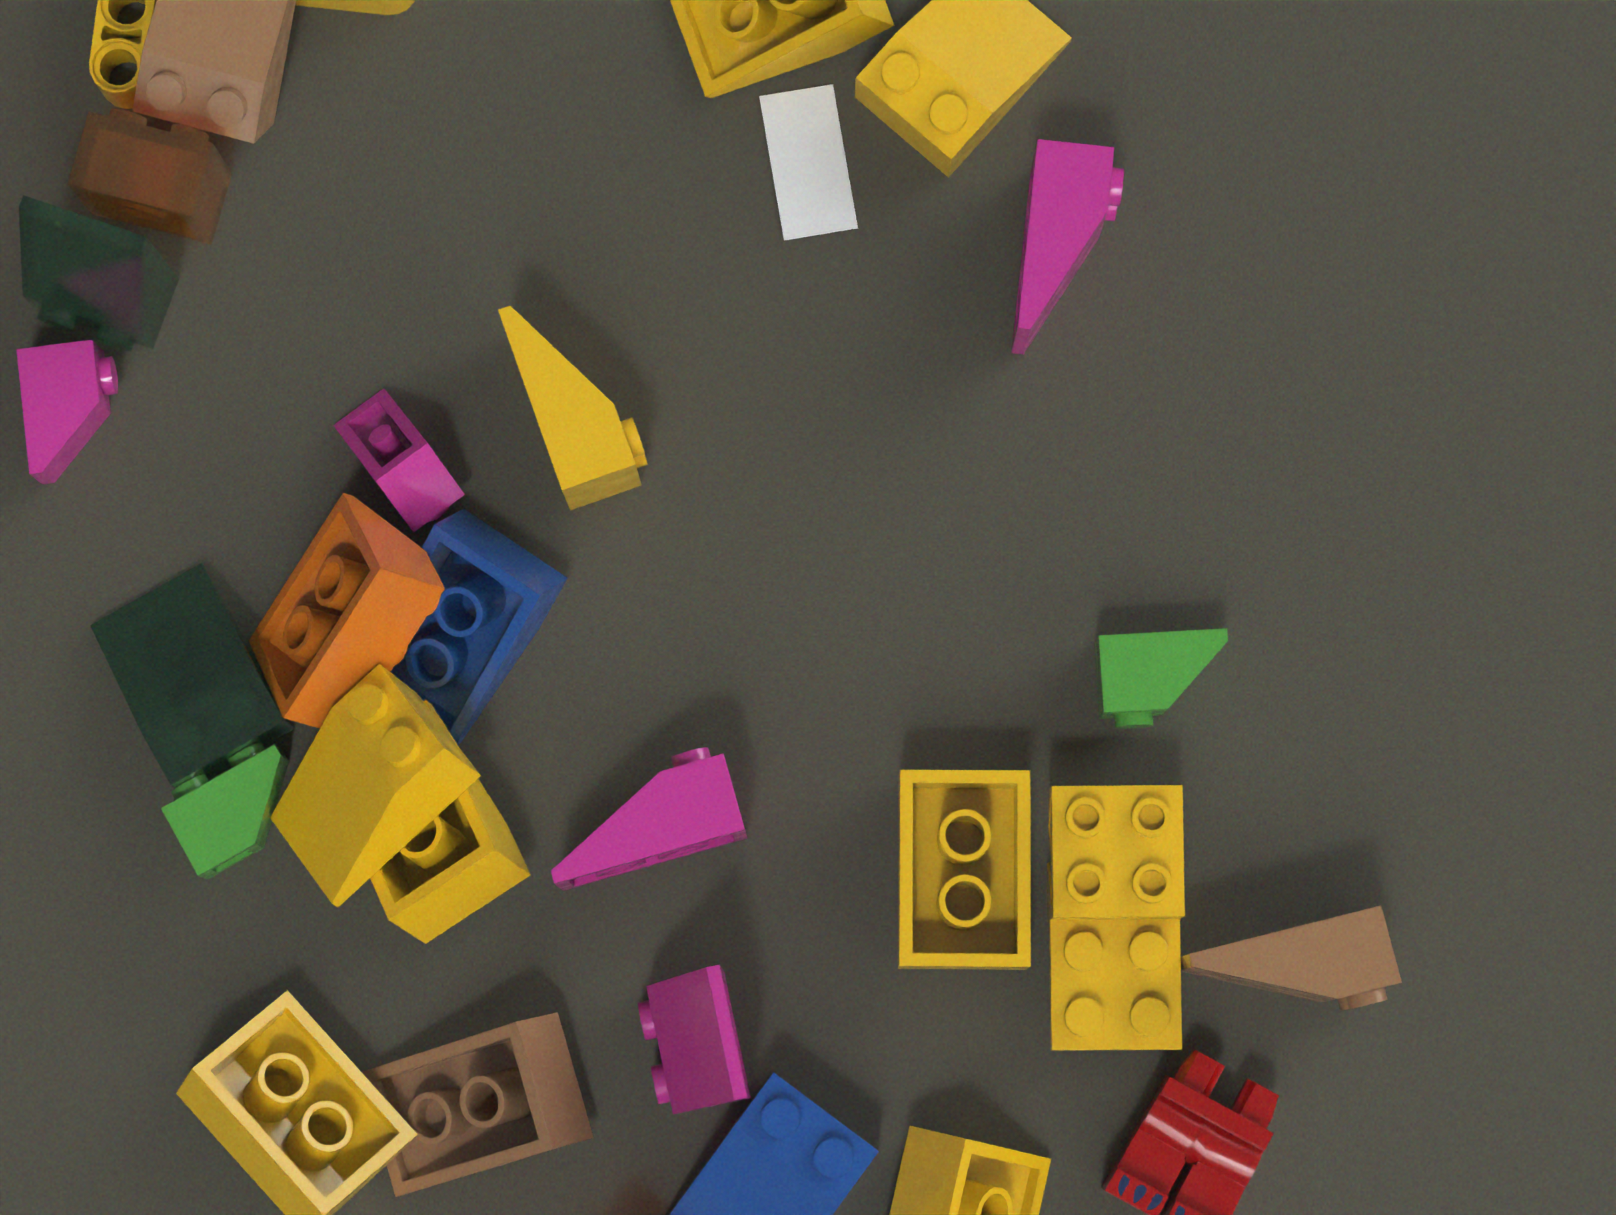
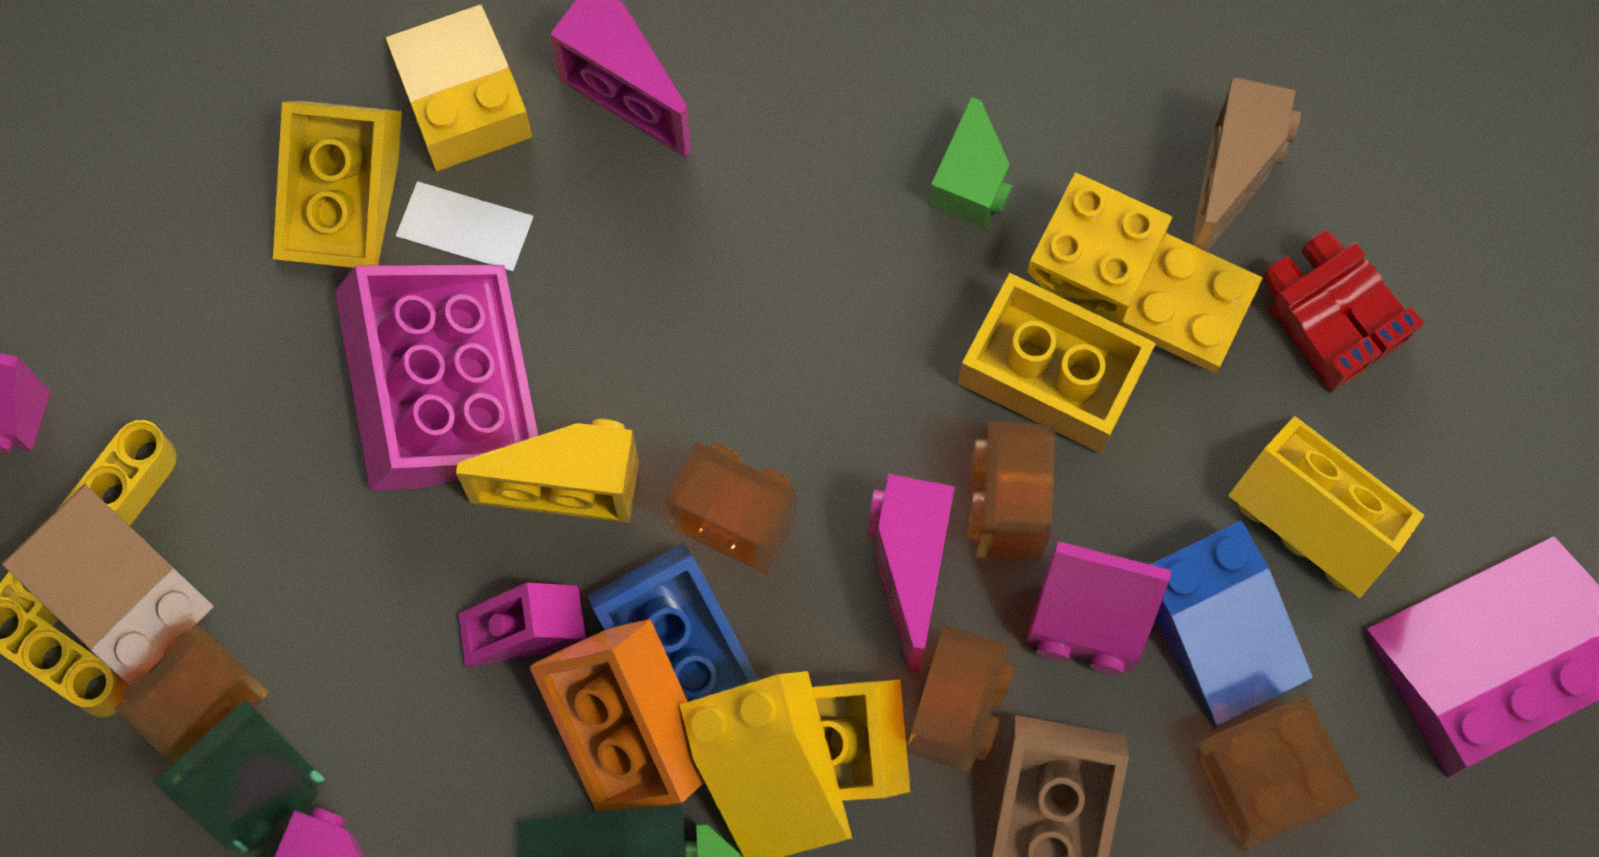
camera: 65 degrees left, 10 degrees down
(534, 945) = (957, 699): none -> clear orange brick
(623, 226) = (432, 369): none -> dark pink slope
(623, 609) = (732, 506): none -> clear orange brick
(790, 892) = (1015, 491): none -> clear orange brick

